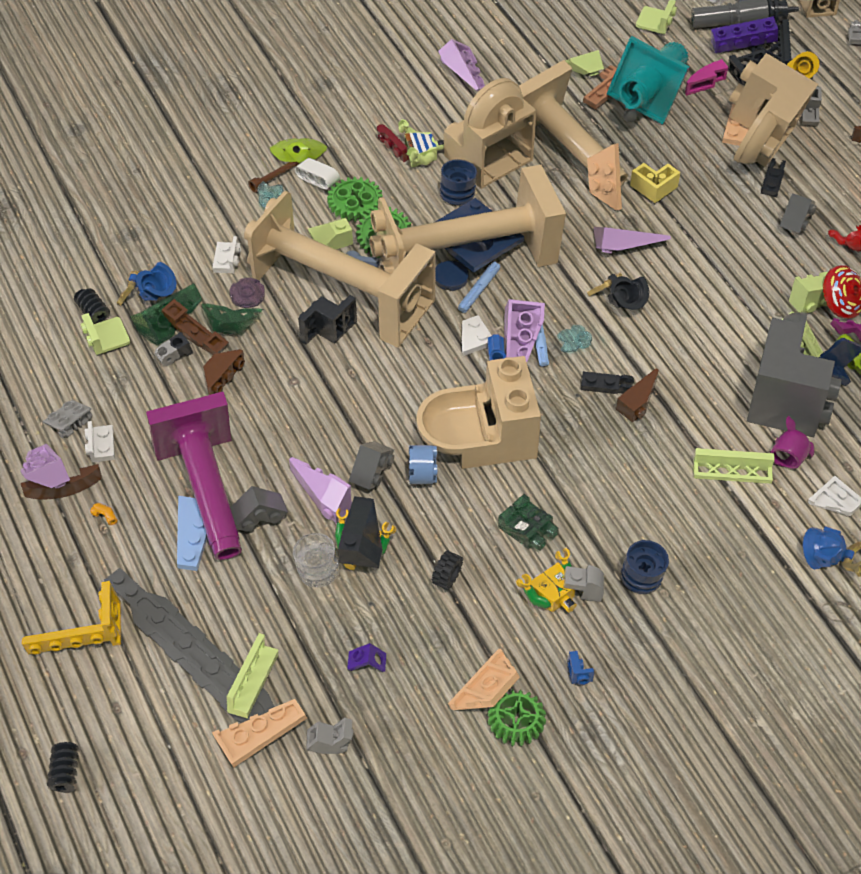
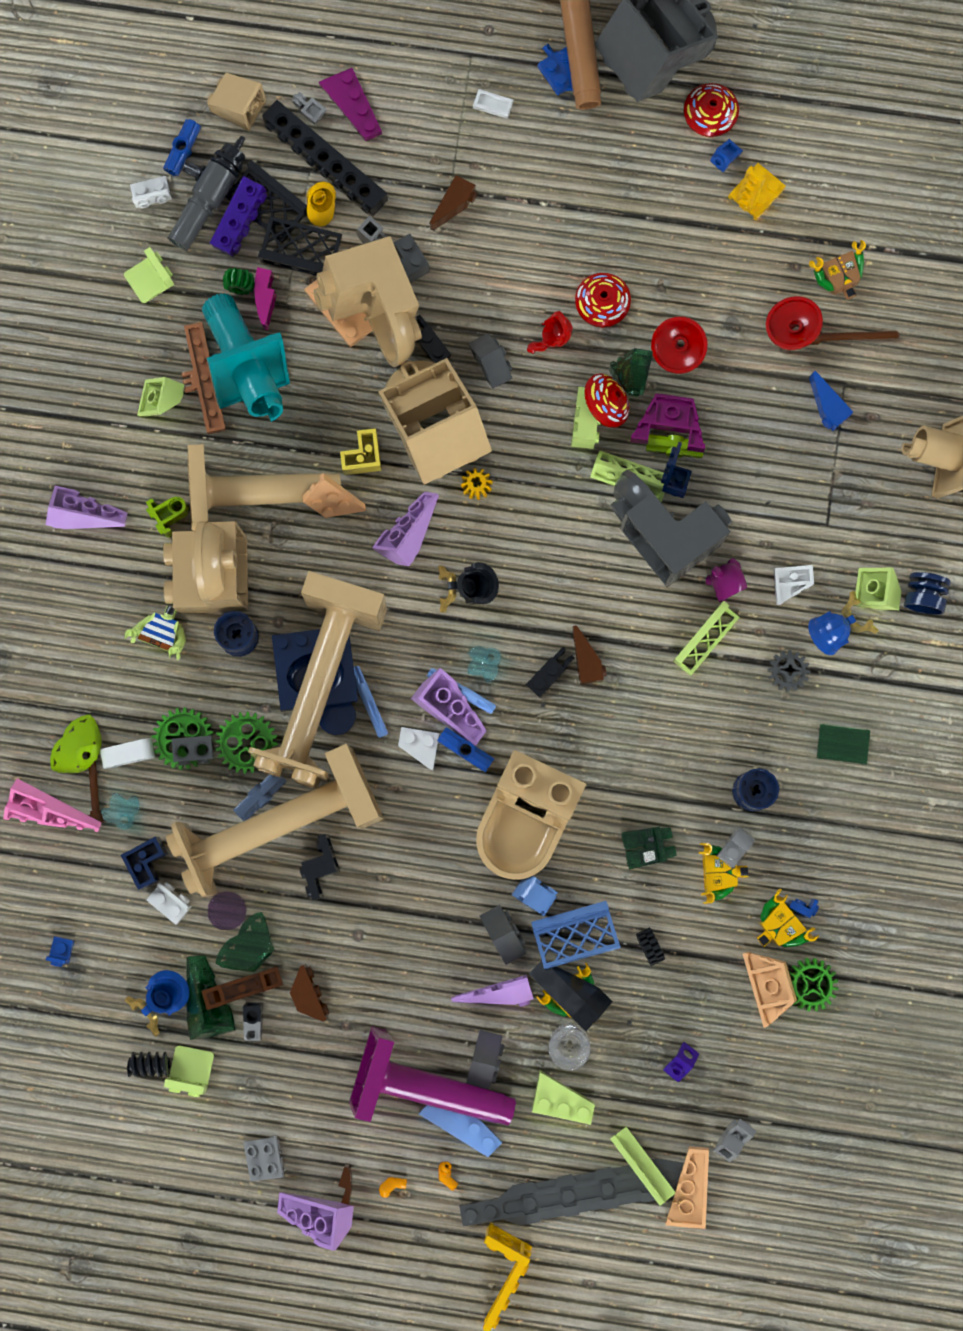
camera: 50 degrees left, 30 degrees up
(100, 442) = (312, 1146): white bracket -> none
(139, 544) = (444, 1175): none -> light orange arm
(140, 217) = (60, 951): none -> blue bracket
(237, 151) = (33, 804): none -> bright pink wedge
(238, 220) = (140, 861): none -> dark blue brick
(263, 584) = (560, 1101): none -> yellowish green wedge
(333, 234) = (209, 789): yellowish green slope -> none
(352, 198) = (192, 744): none -> dark grey brick
(391, 141) = (132, 653): dark red hinge -> none
(417, 503) = (567, 921): none -> medium blue fence
(550, 659) = (782, 925): none -> torso
(701, 56) = (238, 281): none -> green gear
(701, 257) = (473, 477): none -> yellow gear
(718, 197) = (422, 391): none -> tan piece
(743, 620) = (843, 744): none -> clear green piece
(764, 538) = (788, 679): none -> dark grey gear
(812, 136) = (411, 258): none -> dark grey brick
(833, 58) = (278, 113): none -> black brick

